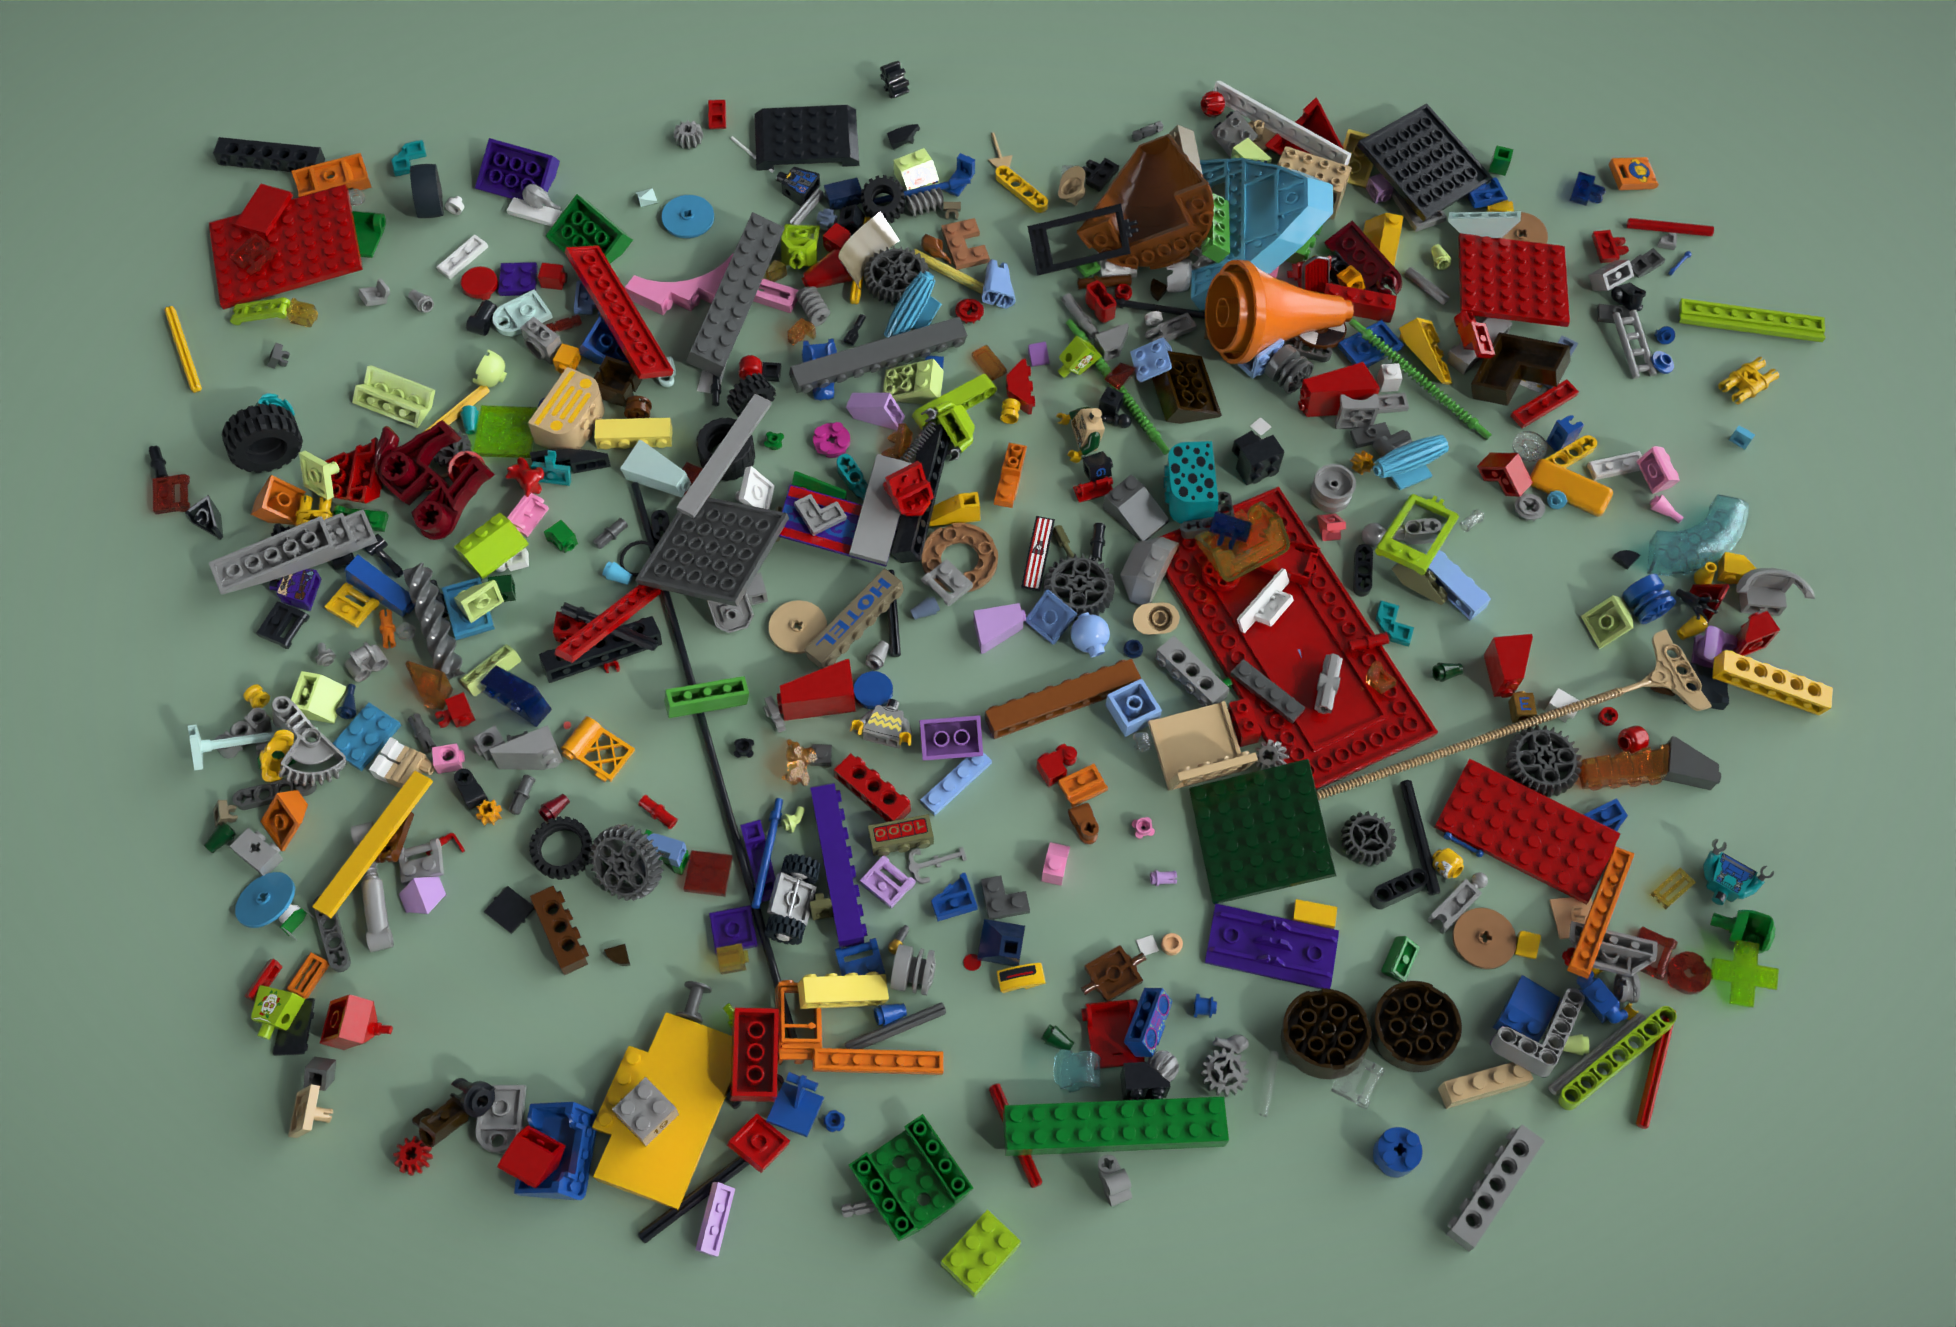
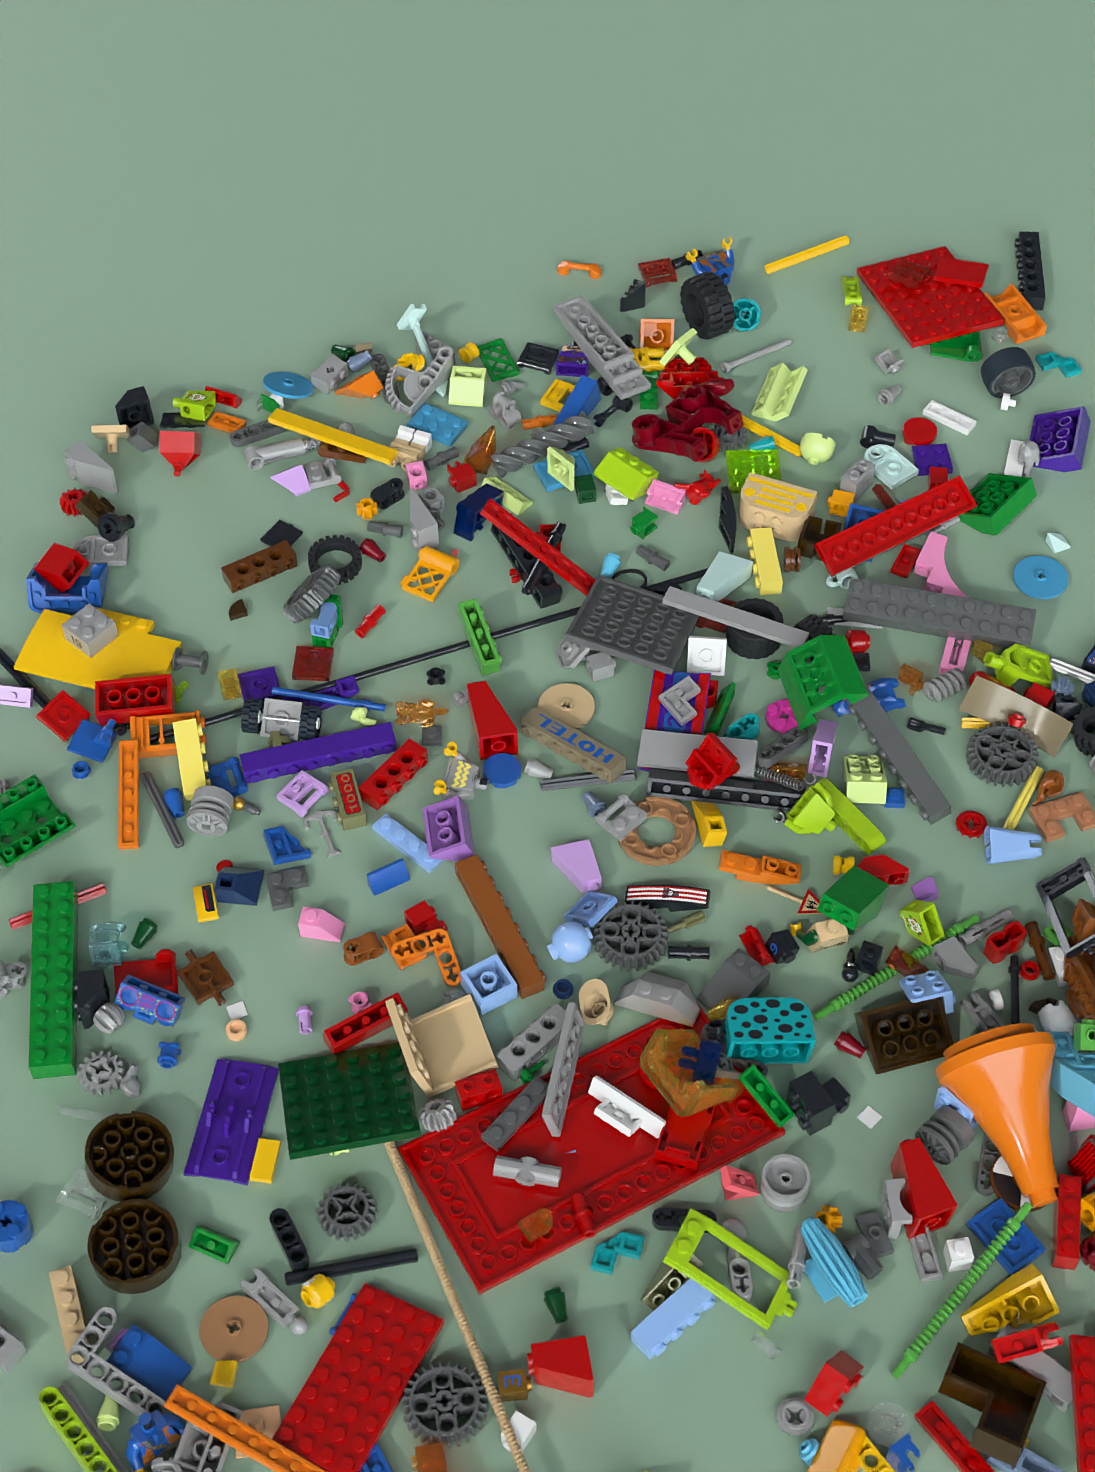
camera: 90 degrees right, 10 degrees down
(131, 588) = (564, 267): none -> orange bar
(179, 433) = (718, 262): none -> torso
(241, 817) = (359, 361): none -> sand blue cone
(270, 1080) = (134, 408): none -> black slope
(276, 356) = (808, 309): dark grey tile -> none
(277, 681) = (504, 373): none -> green window
(342, 441) = (726, 366): none -> light grey bar
(347, 706) = (464, 408): dark blue cone -> none
(364, 1136) = (89, 468): none -> light grey slope
(552, 472) = (711, 507): teal plate -> none
(654, 318) = (905, 561): none -> red plate
(814, 407) = (831, 667): none -> green slope
(866, 254) = (1016, 719): none -> red plate
(875, 440) = (782, 747): none -> dark grey beam
(915, 306) = (956, 760): medium azure plate -> none
(989, 362) = (906, 846): clear orange tile -> none
(999, 799) = (387, 877): none -> blue slope
(1046, 443) = (808, 905): none -> piece
(1064, 397) = (854, 898): none -> green slope
(1092, 754) = (438, 949): none -> orange beam
(1163, 518) = (720, 1010): none -> clear yellow cone
(1175, 818) = (360, 1026): none -> red brick
(1188, 517) = (716, 1029): none -> black plate
(1194, 430) = (848, 1044): none -> dark red cone
(1233, 643) = (563, 1070): none -> light grey tile
(1252, 491) = (766, 1095): none -> green slope
(1397, 487) = (796, 1264): none -> light grey pin

